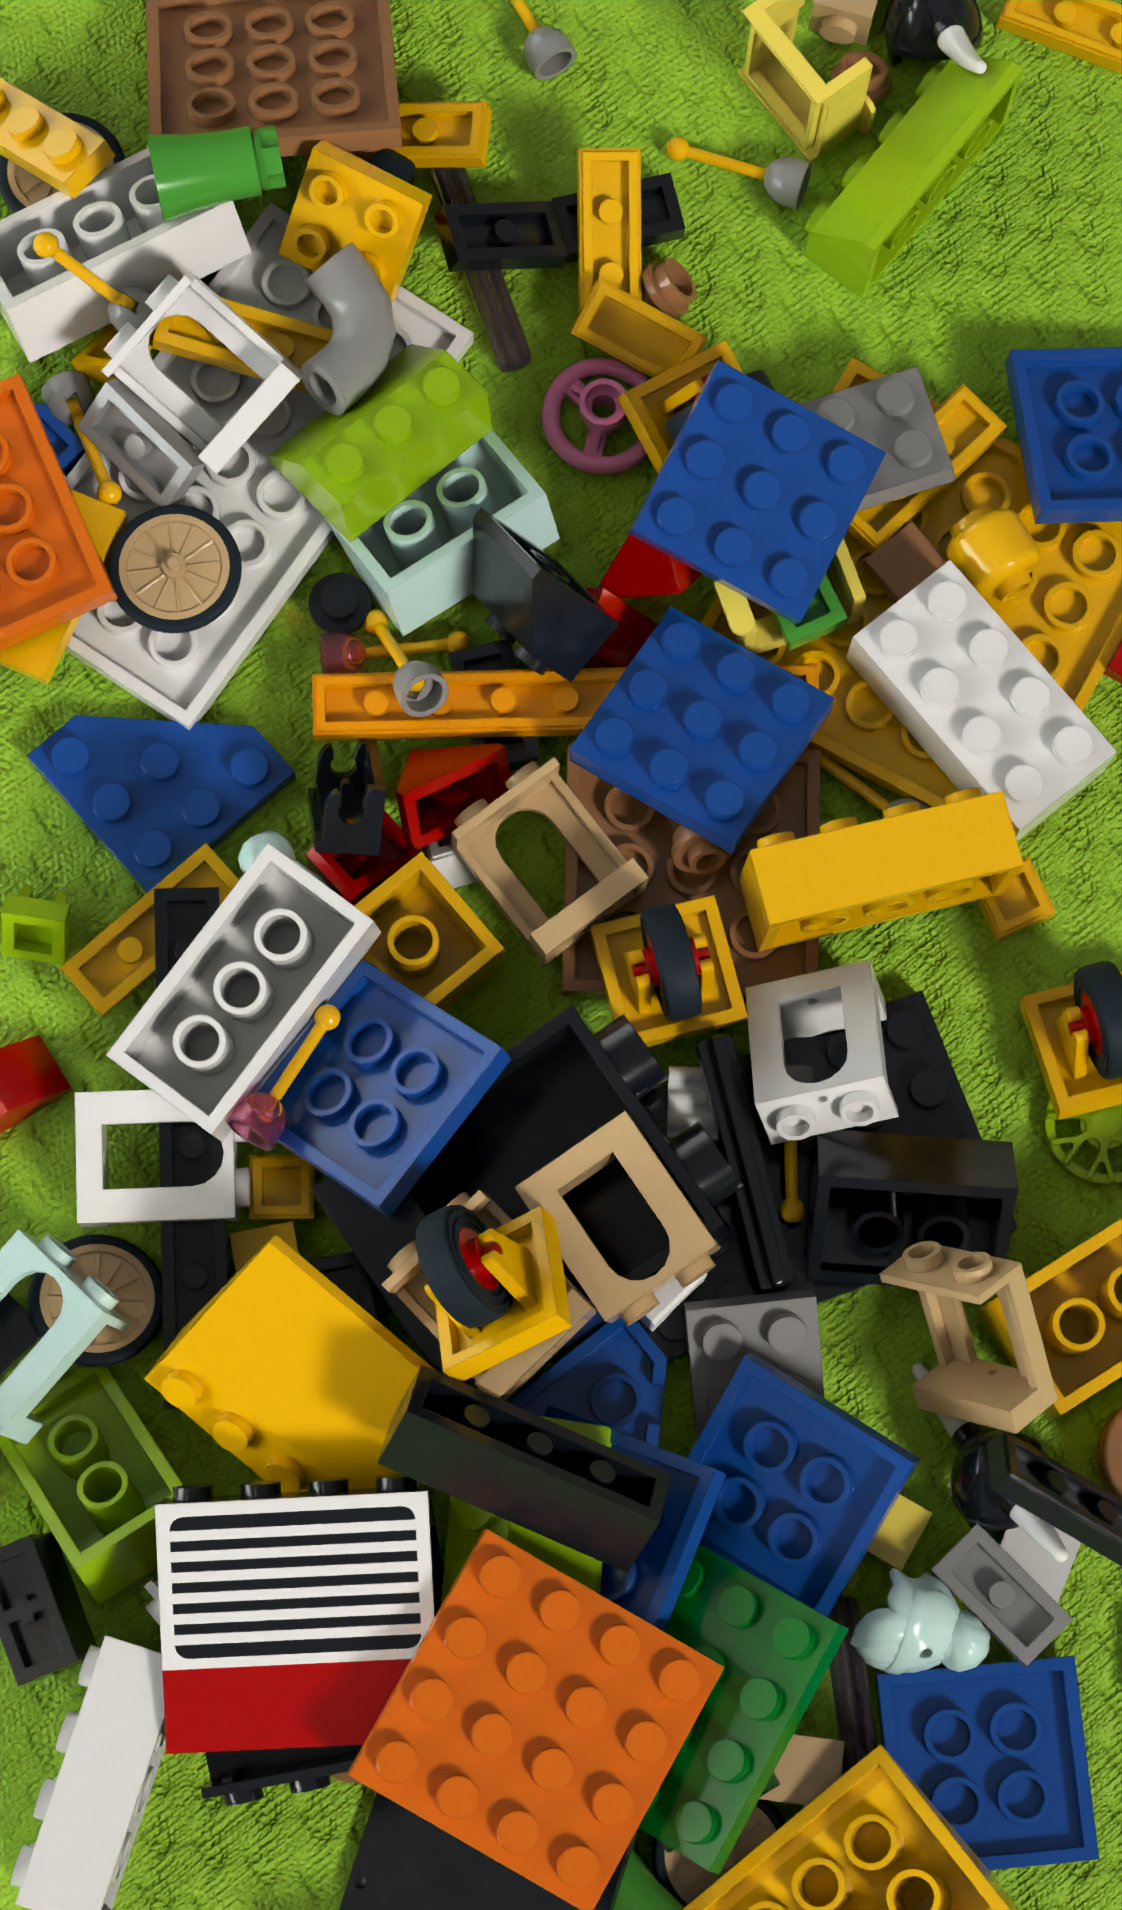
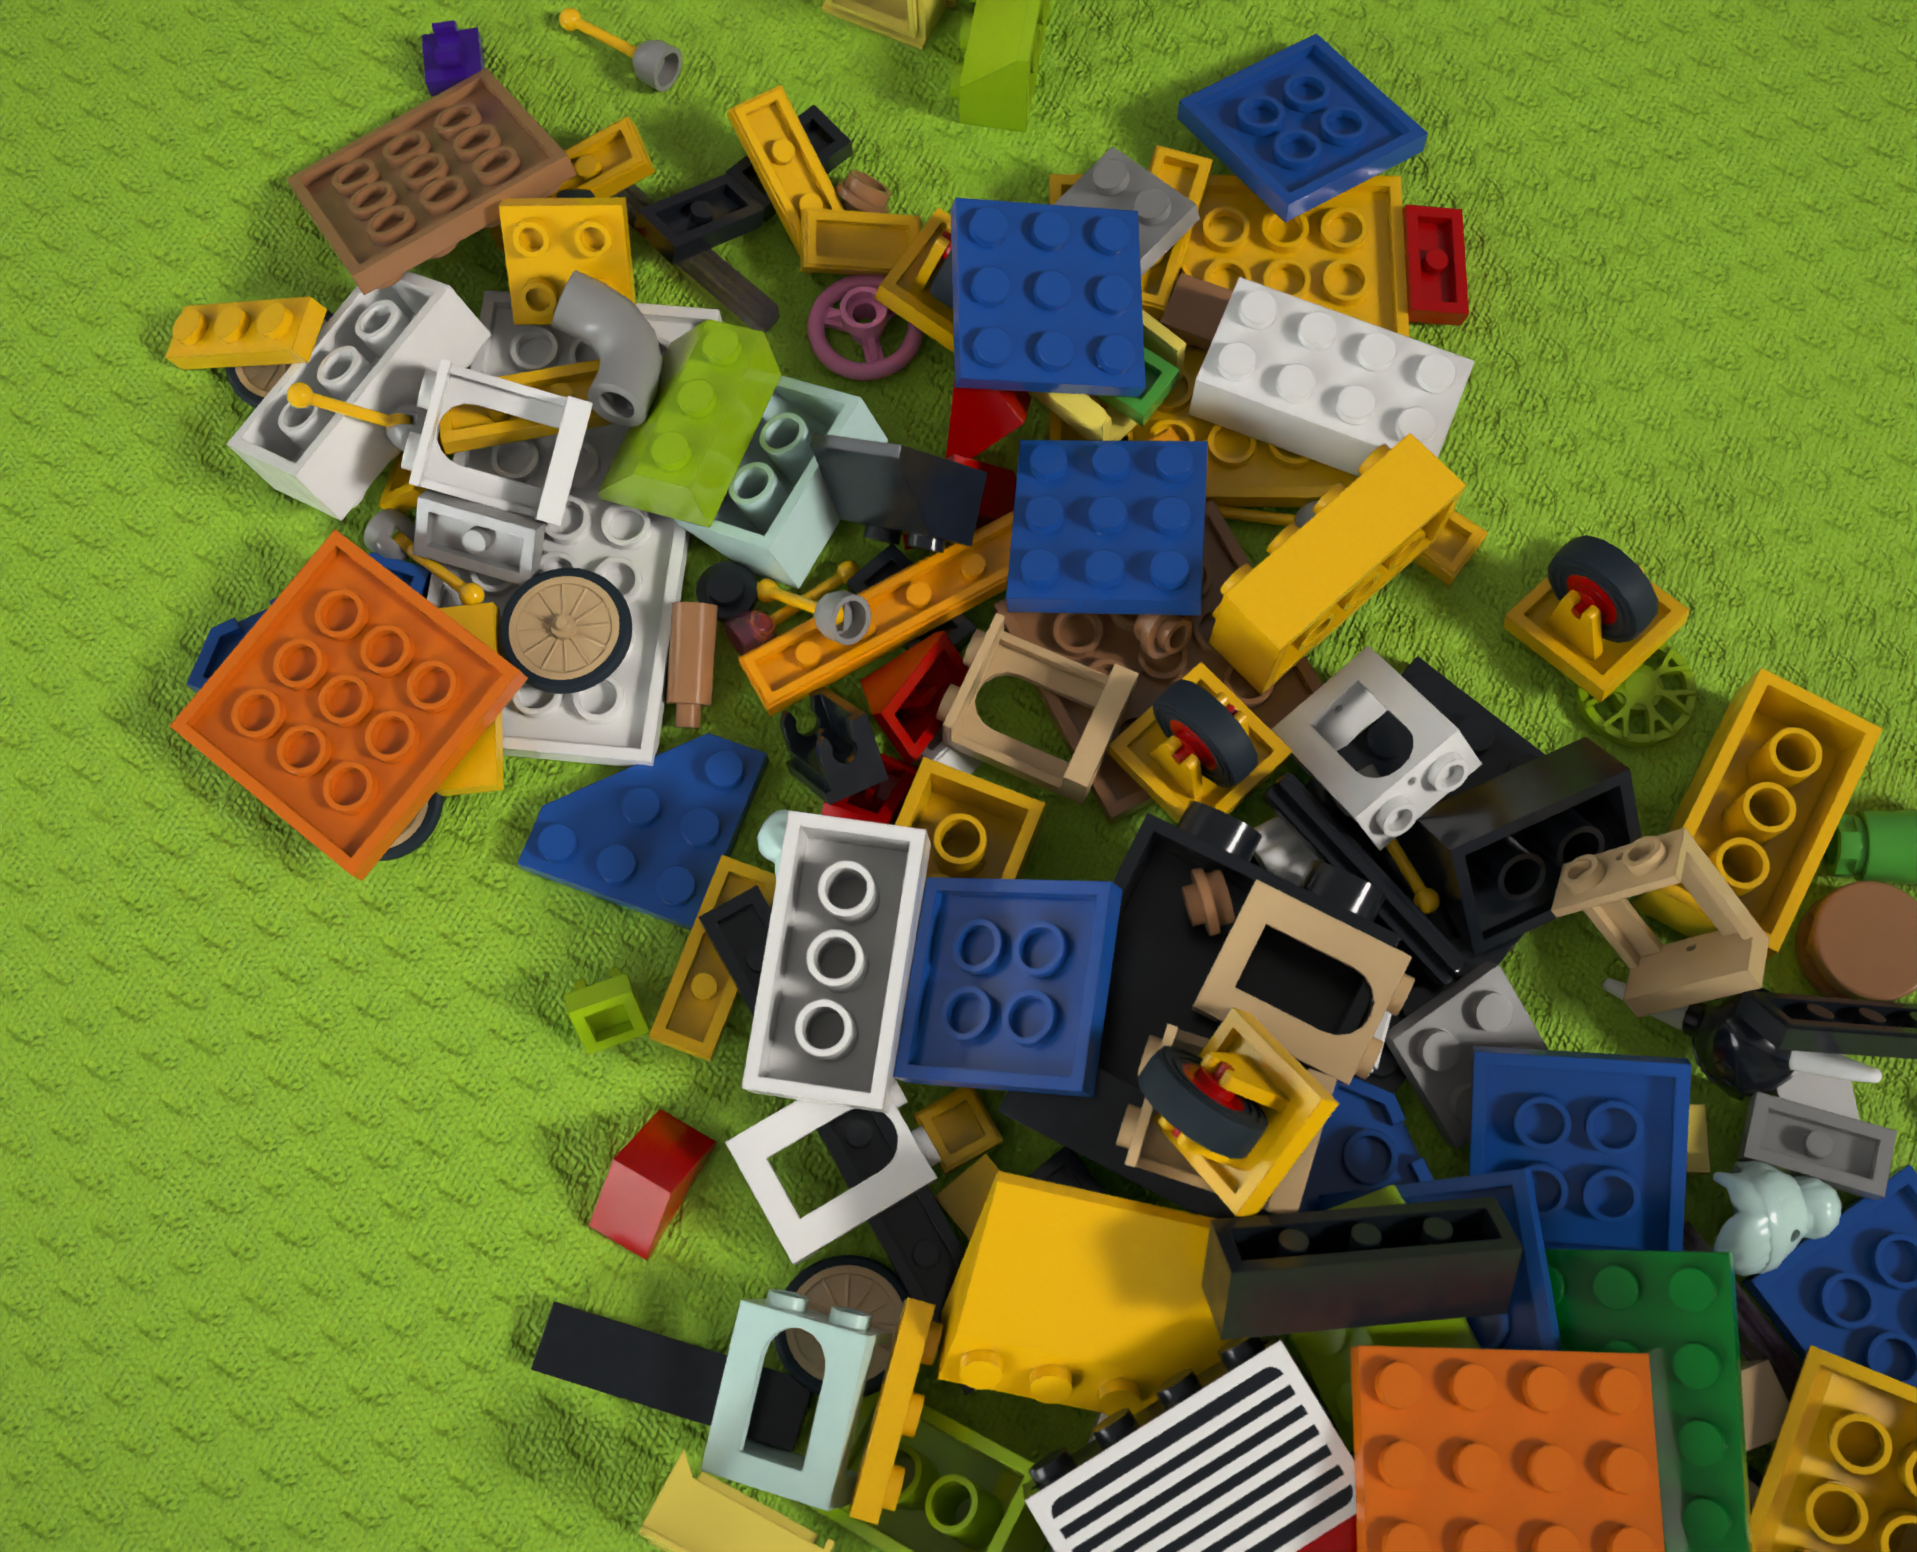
camera: 20 degrees left, 5 degrees down
(96, 1386) = (895, 1412): none -> yellow plate
(213, 167) = (419, 261): bright green plant -> none
(261, 1116) = (917, 1067): hinge -> none
(272, 653) = (691, 661): none -> medium nougat cylinder
(583, 1106) = (1208, 900): none -> medium nougat plate
(783, 179) = (908, 68): hinge -> none
(994, 552) = (1267, 256): yellow head -> none

